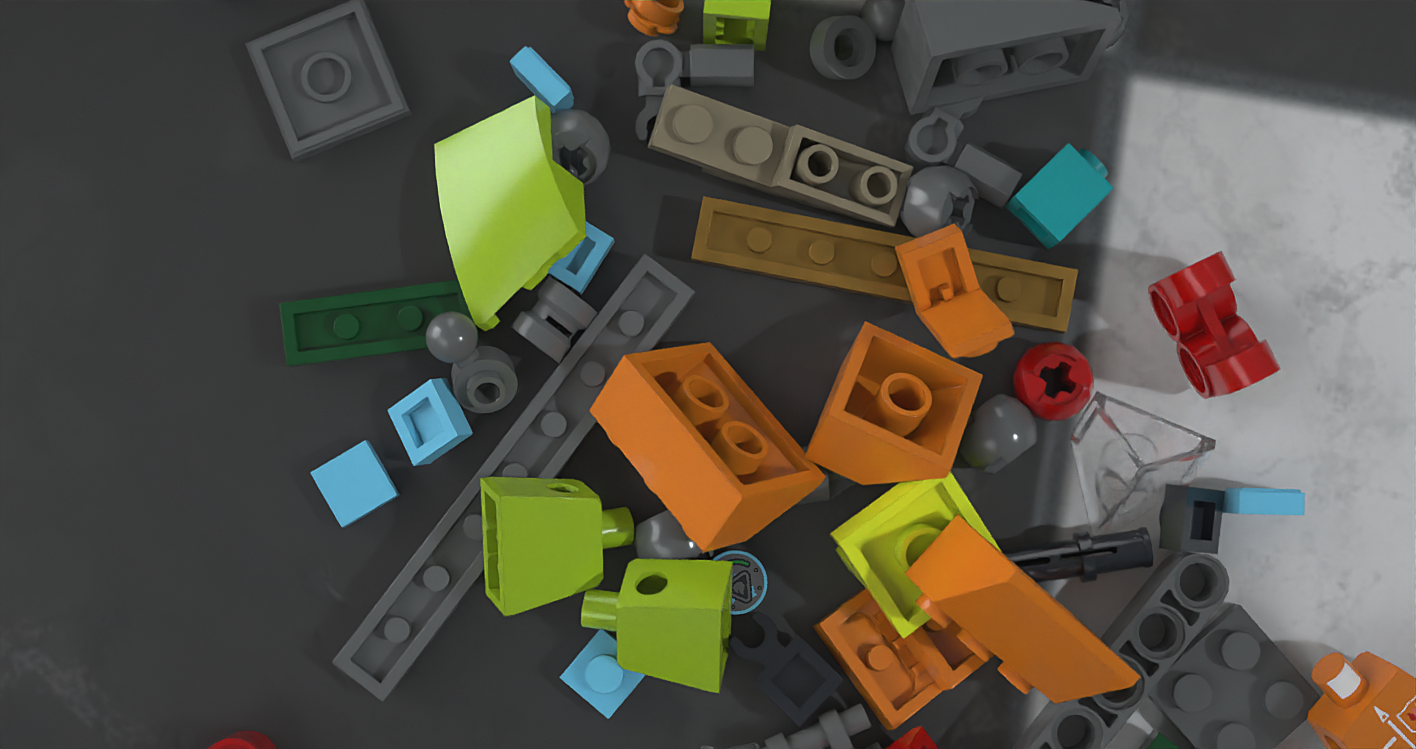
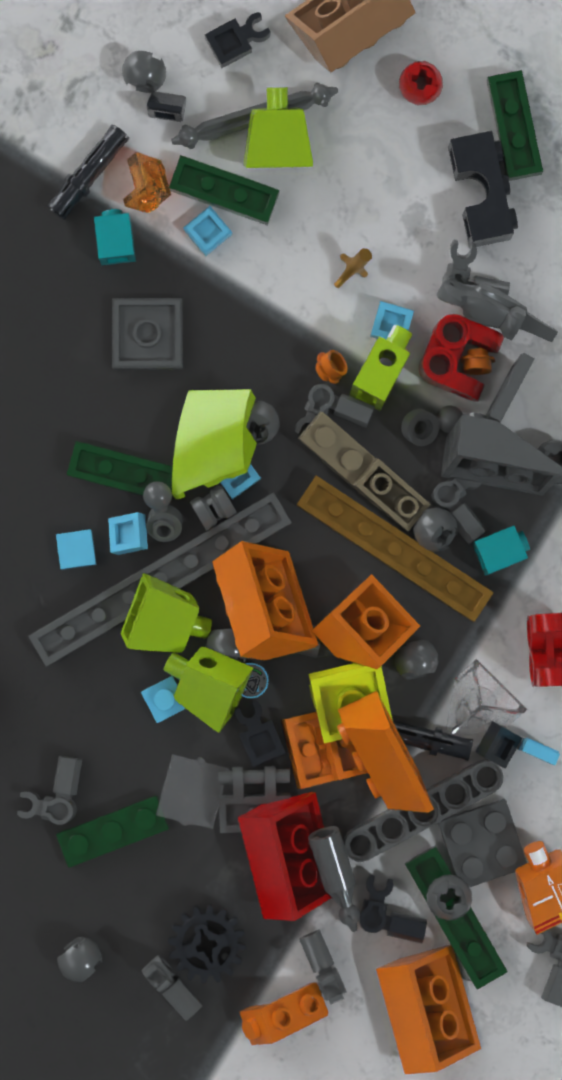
camera: 20 degrees right, 0 degrees up
(542, 80) = (257, 381): medium azure tile -> none
(949, 294) = (420, 577): orange bracket -> none
(1076, 375) = (471, 645): red piece -> none

